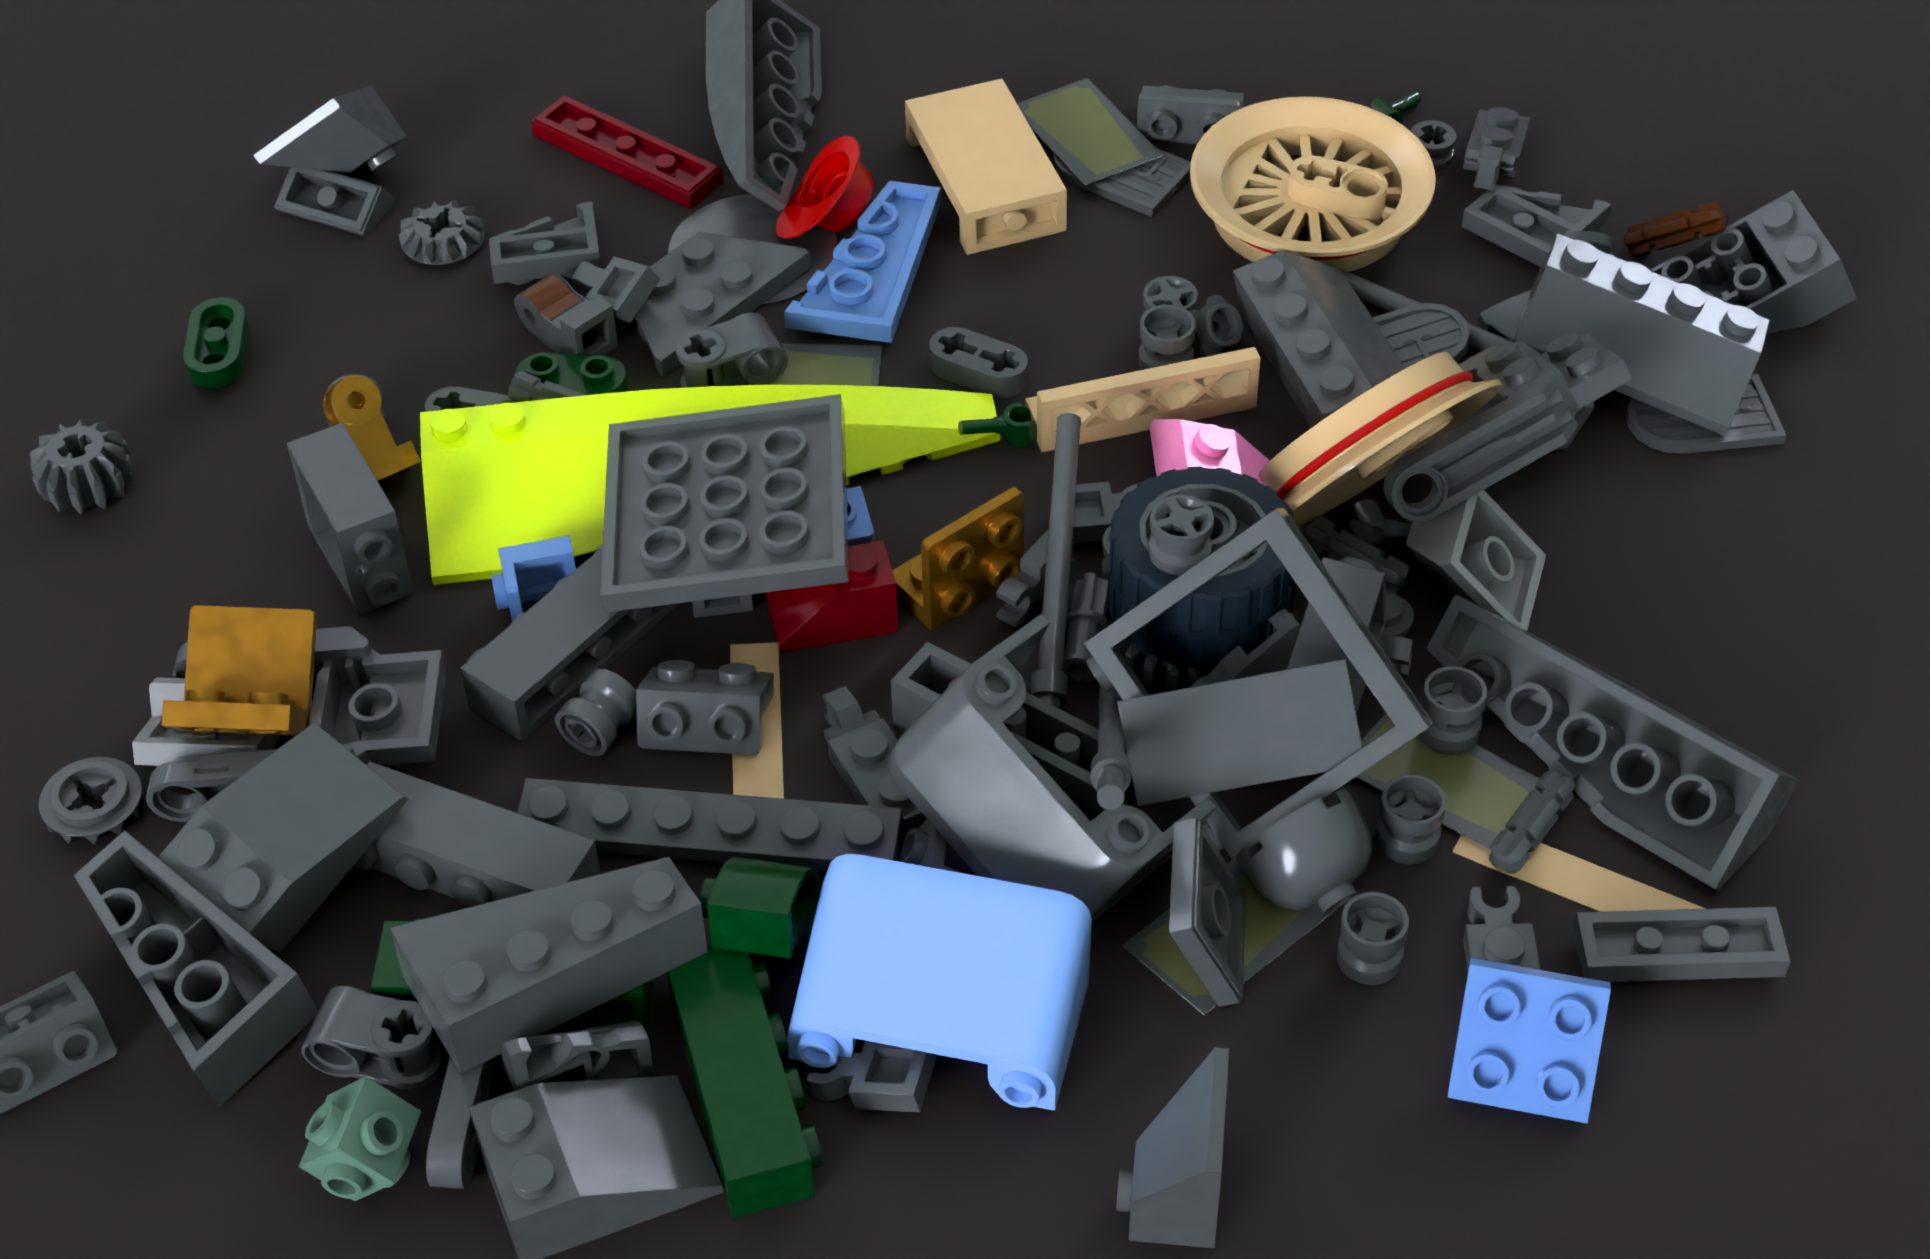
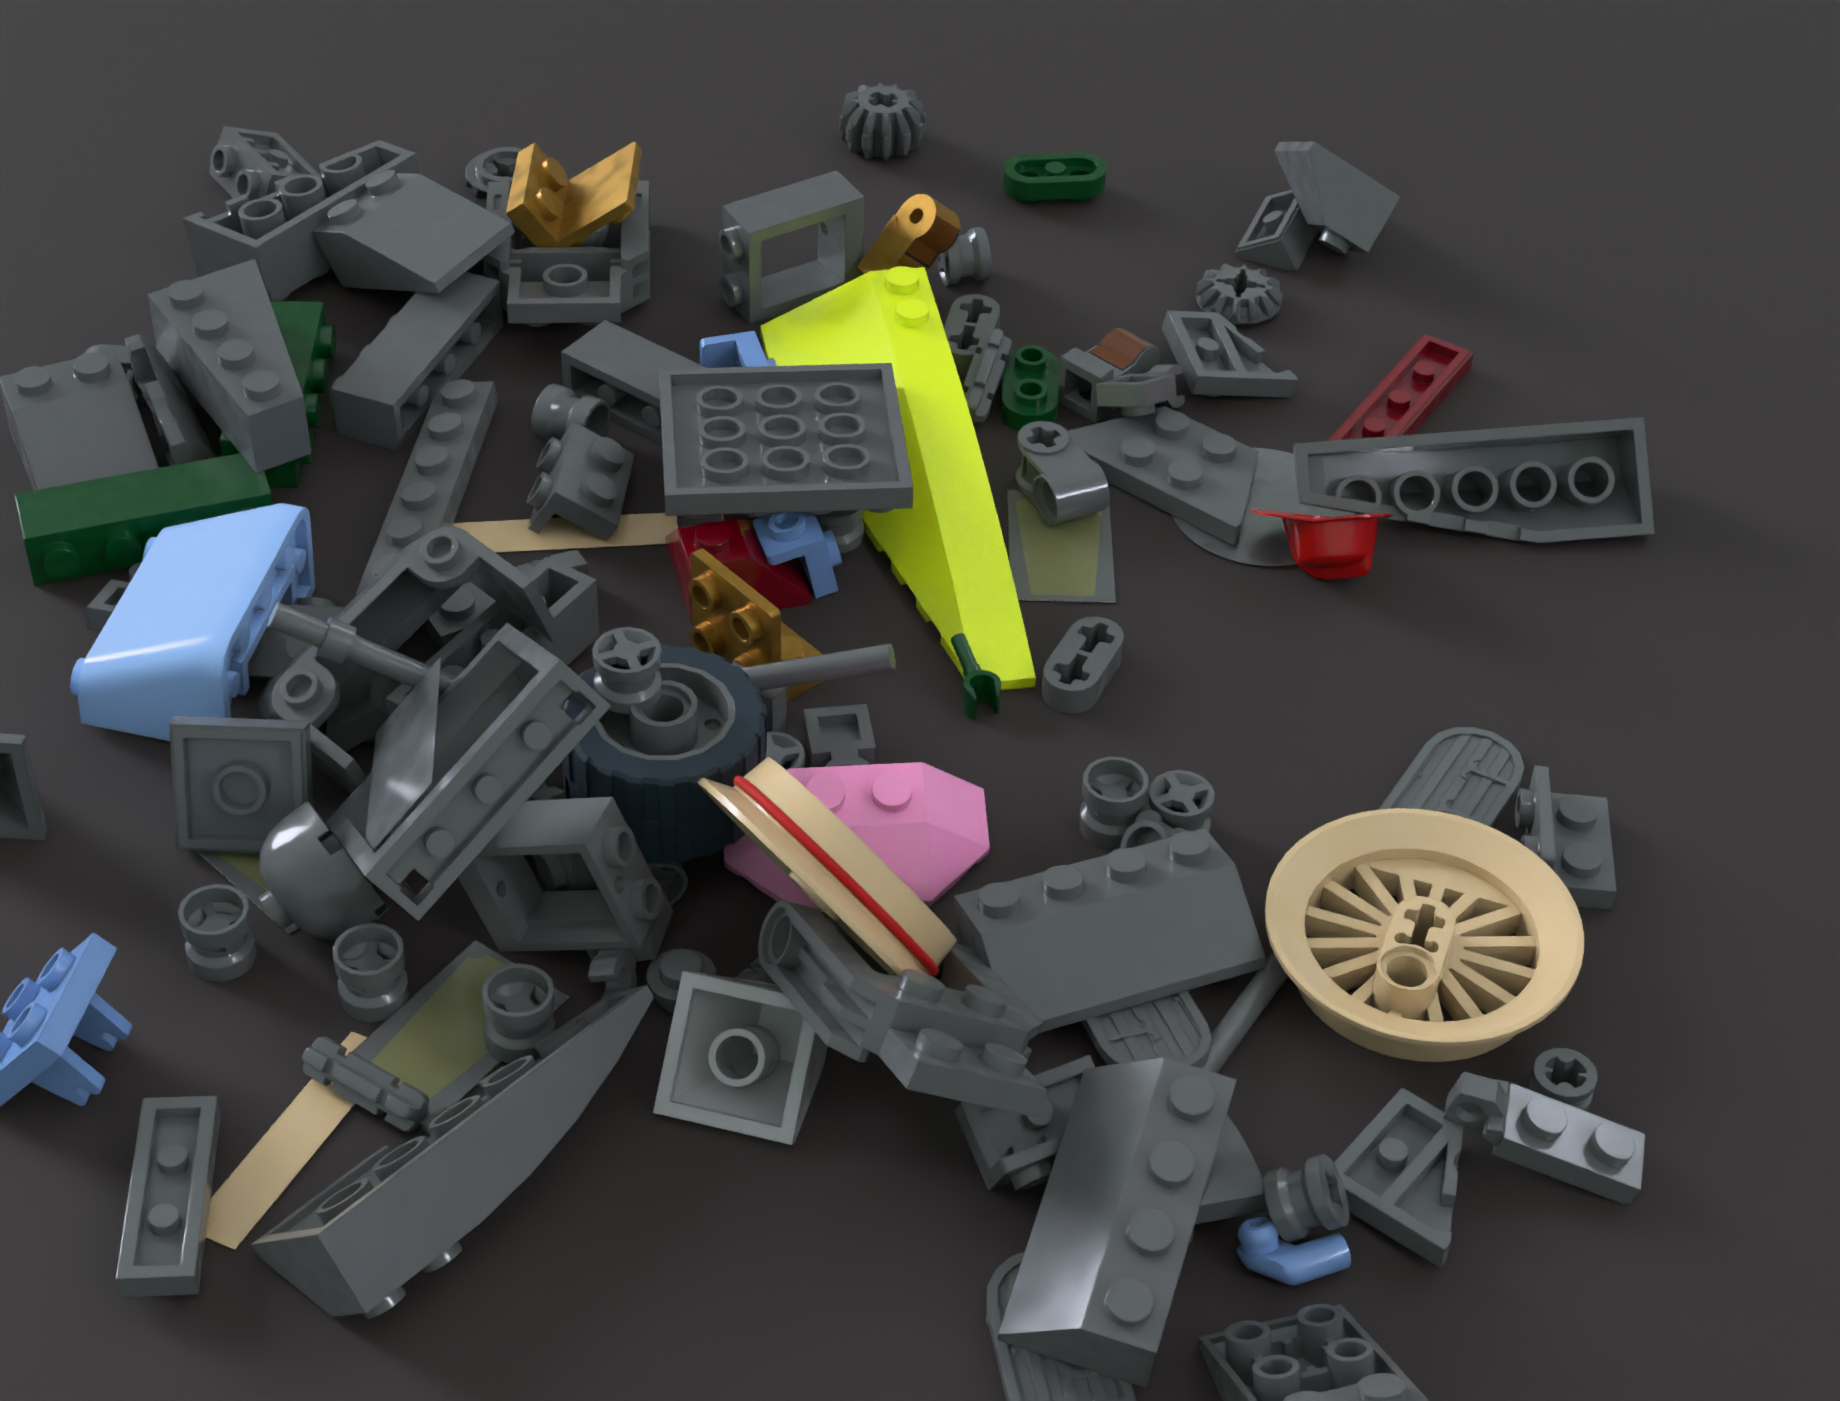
camera: 85 degrees right, 5 degrees down
(359, 1139) = (112, 312): sand green brick -> none
(761, 906) = (285, 469): dark green brick -> none
(873, 270) = (1232, 582): medium blue wing -> none
(988, 165) = (1407, 650): tan panel -> none
(1087, 131) = (1498, 752): olive sticker -> none
(1133, 399) = (1021, 776): tan fence -> none
(1395, 108) = (1615, 1032): dark green hand -> none
(1495, 935) = (203, 1047): dark grey plate -> none
(1676, 229) = (1390, 1310): reddish brown axle -> none

